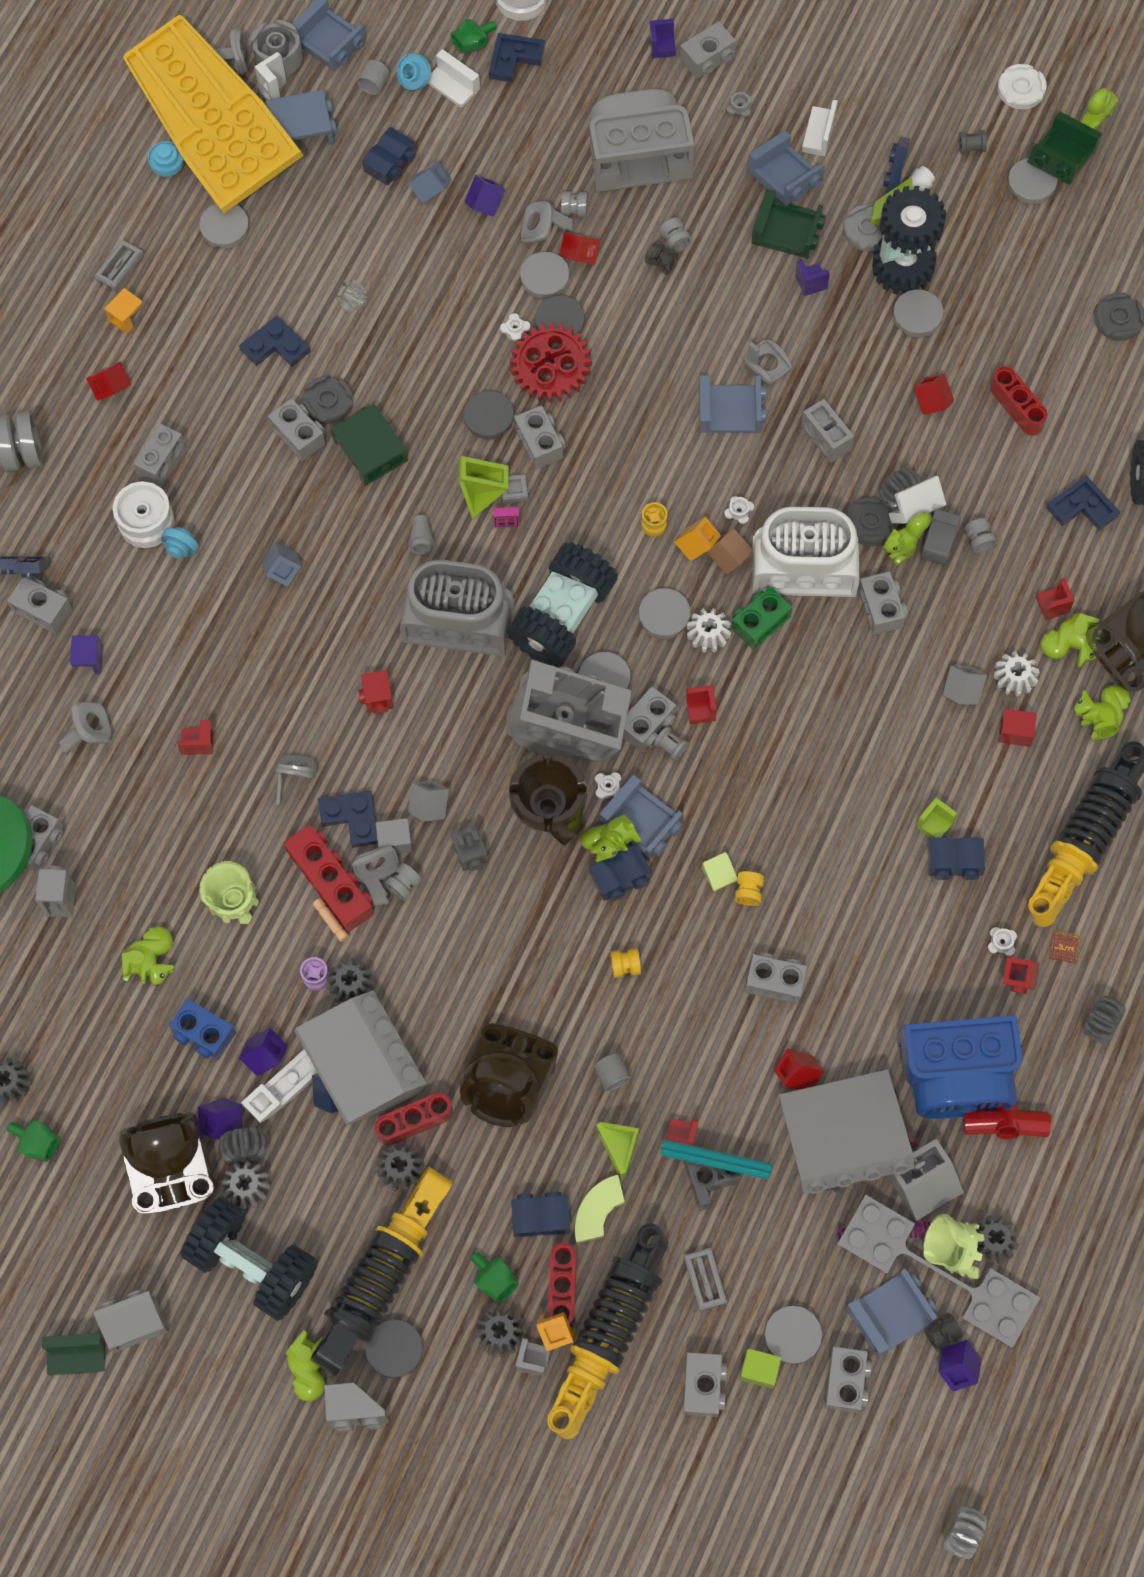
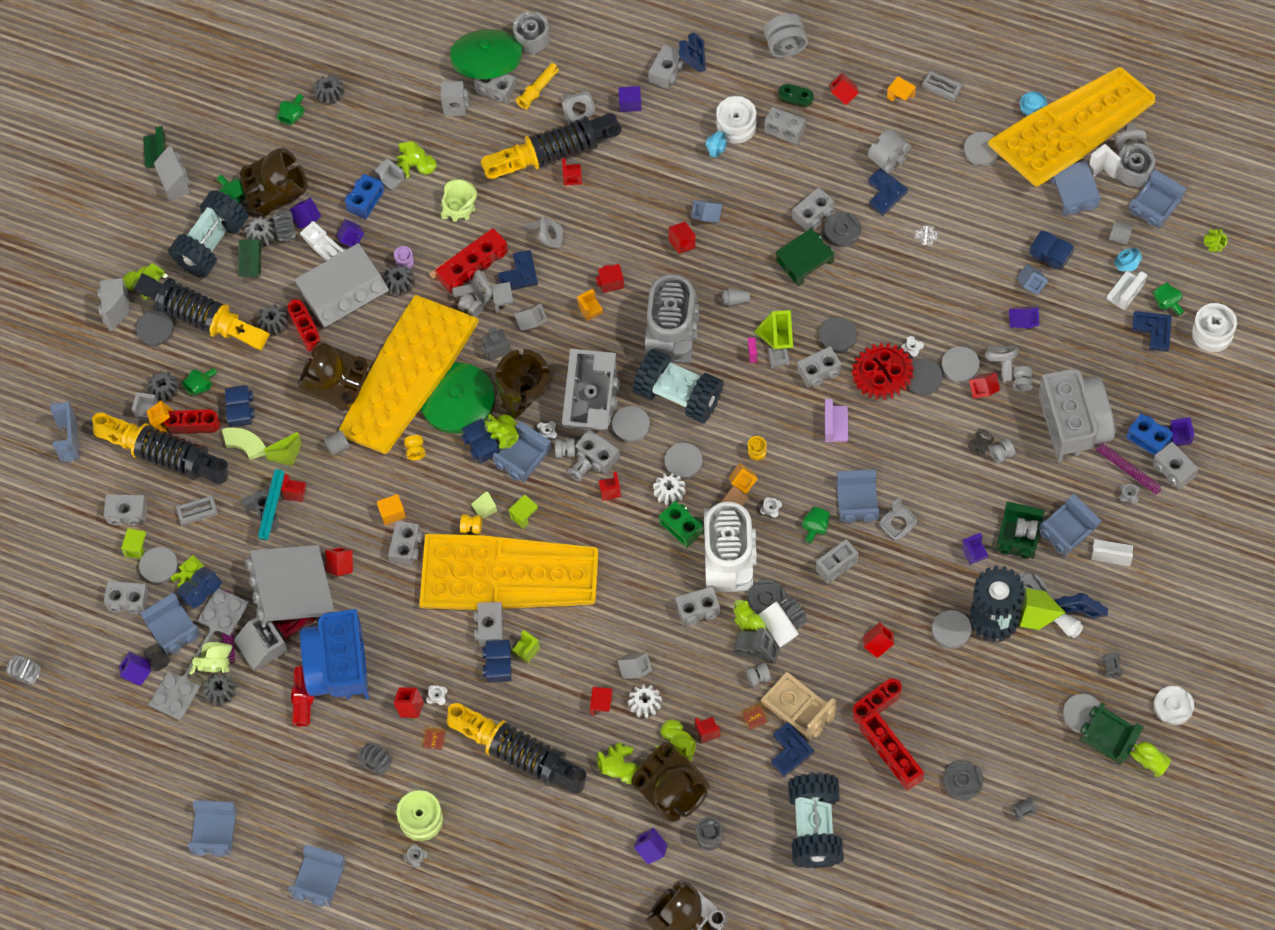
camera: 90 degrees right, 5 degrees down
(52, 787) = (532, 91): none -> yellow pin
(110, 442) = (795, 95): none -> dark green plate
(154, 758) = (546, 146): none -> black piece
(166, 1230) = (232, 188): none -> green piece
(169, 993) = (389, 174): none -> light grey panel
(221, 326) = (889, 150): none -> light grey brick
(293, 1198) = (249, 258): none -> dark green panel
(325, 593) = (682, 237): none -> red brick
(418, 722) = (589, 305): none -> light orange panel
(503, 971) = (406, 372): none -> yellow wing
(546, 907) = (459, 399): none -> green dish
(547, 1469) = (65, 417): none -> sand blue panel
(619, 426) = (835, 422): none -> lavender panel
(639, 760) = (565, 448): none -> light grey wheel
(666, 75) = (1146, 439): none -> blue brick
(709, 93) = (1127, 471): none -> magenta piece
(722, 994) = (391, 509): none -> light orange panel
(733, 817) = (522, 511): none -> lime panel
(765, 456) = (816, 523): none -> green piece
(788, 217) = (1026, 528): none -> light grey wheel
(802, 1286) = (187, 570): none -> lime plate
(824, 848) = (516, 572): none -> yellow wing
(837, 1268) = (199, 587): none -> dark blue brick
(914, 858) = (486, 613): none -> light grey brick
(1029, 484) = (799, 706): none -> tan bracket
(1034, 546) = (754, 716): none -> tile
(1090, 385) = (891, 750): none -> red brick

